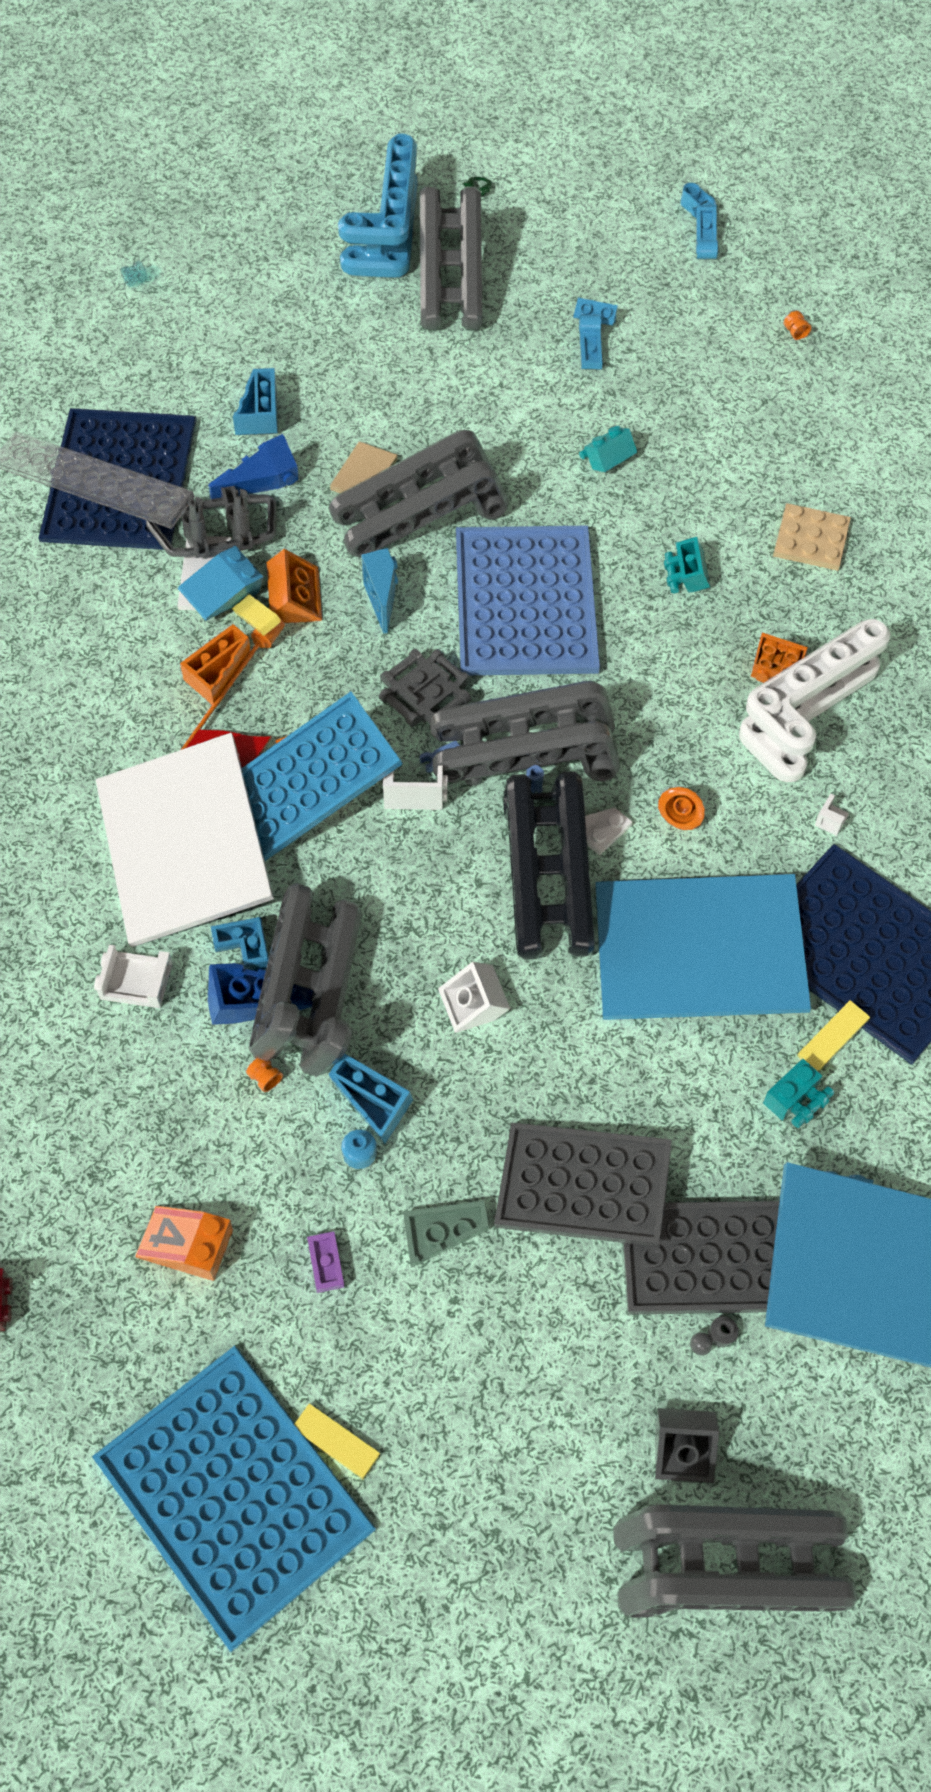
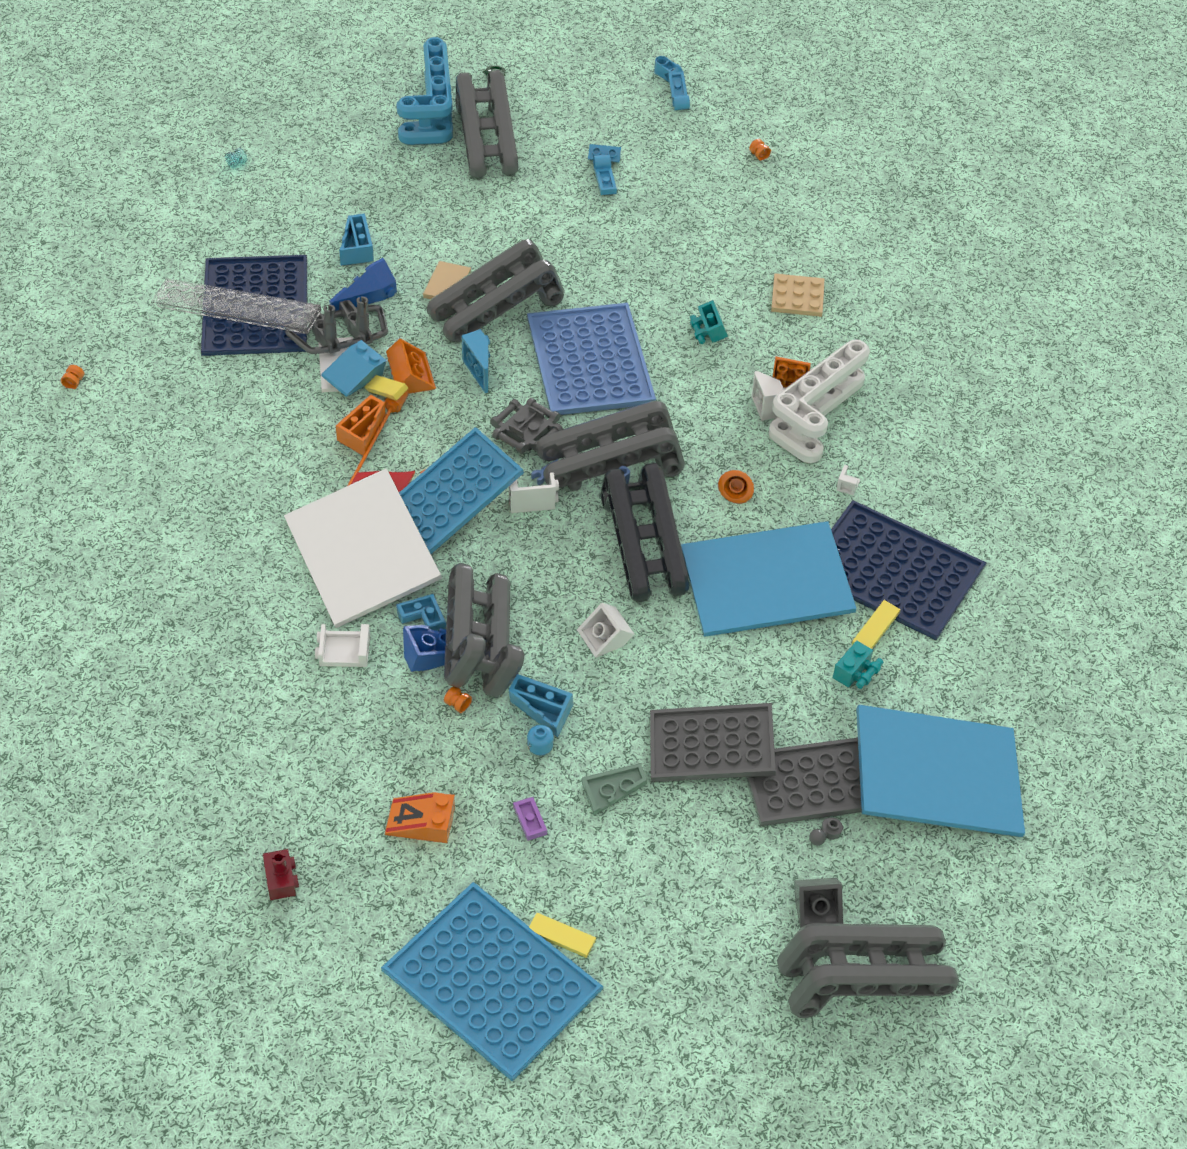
camera: 10 degrees left, 10 degrees down
(605, 828) = (683, 507): white wing -> none
(609, 449) = (634, 247): teal brick -> none
(743, 676) = (763, 393): none -> white slope

